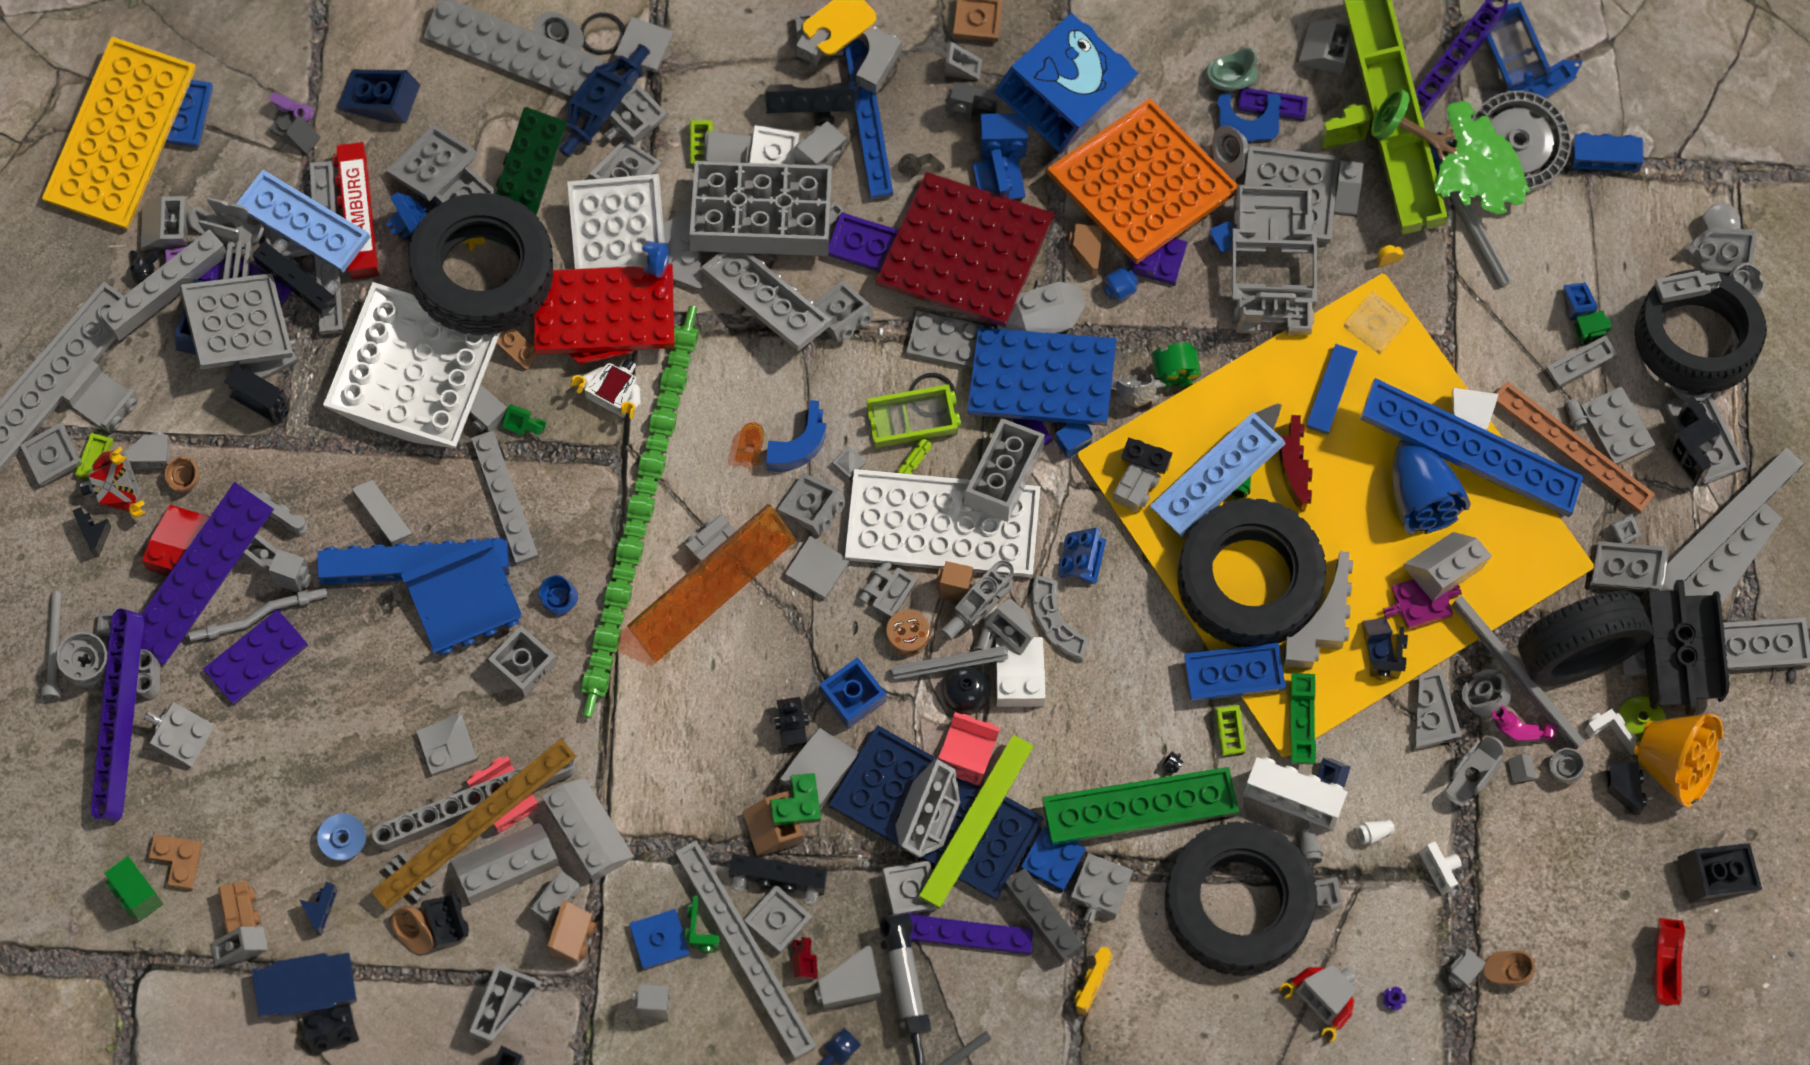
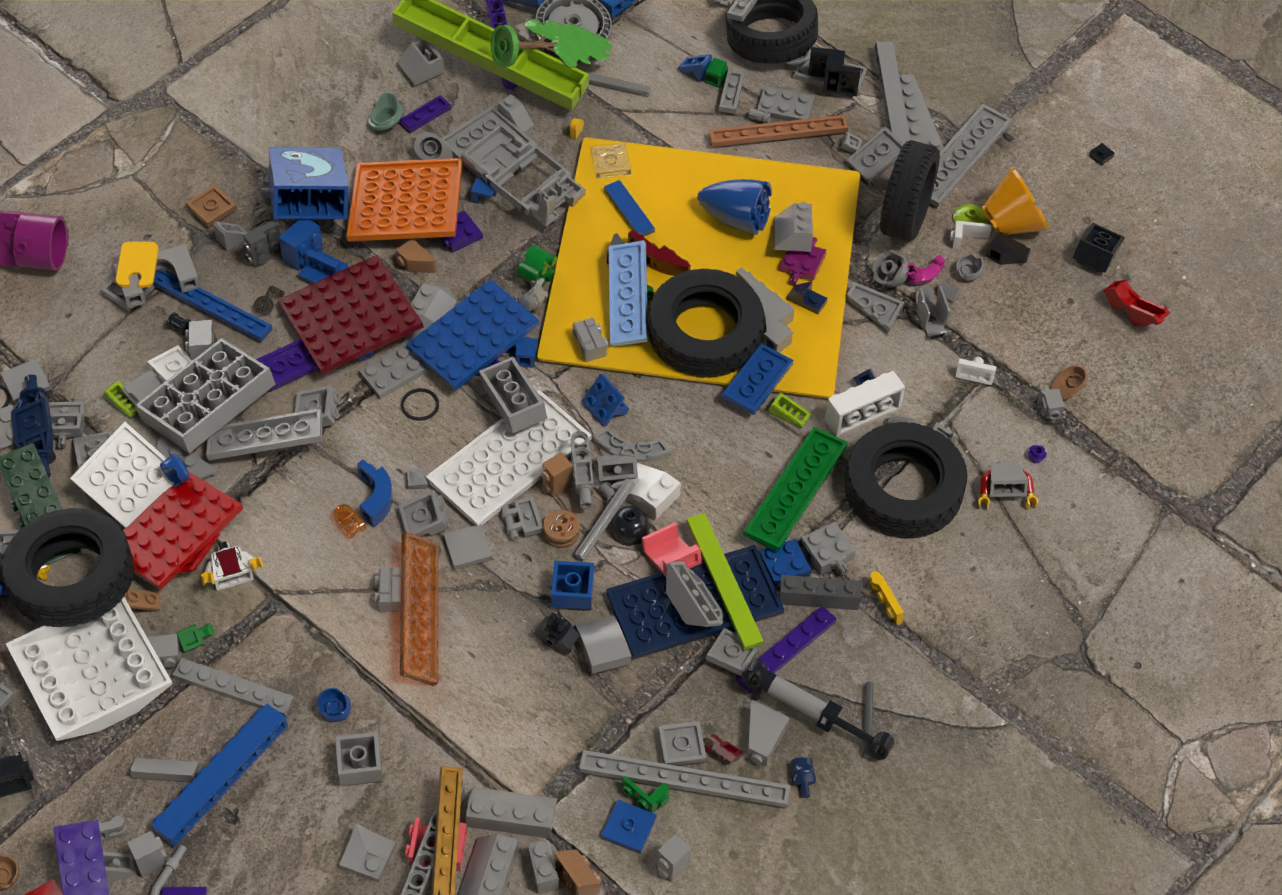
camera: 50 degrees left, 15 degrees down
(462, 596) = (277, 760): blue panel -> none
(640, 510) = (327, 614): bright green piece -> none
(769, 837) = (616, 695): medium nougat slope -> none
(784, 875) = (647, 723): black piece -> none
(802, 806) = (623, 665): green plate -> none
(831, 98) = (161, 322): black arch -> none
(913, 416) = (424, 421): door -> none
(915, 457) = (451, 440): lime axle -> none
(1120, 284) = (455, 258): blue head -> none
(1146, 456) = (578, 319): black bracket -> none
(1172, 762) = (782, 454): black plate -> none
(1262, 128) = (434, 124): blue piece -> none
(1302, 719) = (819, 369): green slope -> none
(1350, 128) = (481, 86): lime plate -> none
(1374, 831) = (922, 387): white cone -> none
(1385, 669) = (831, 303): black bracket -> none
(1471, 447) = (735, 166): blue plate -> none
(1473, 406) = (712, 153): white torso -> none
(1518, 673) = (880, 246): light grey tile -> none
(1668, 676) = (964, 161): black piece -> none

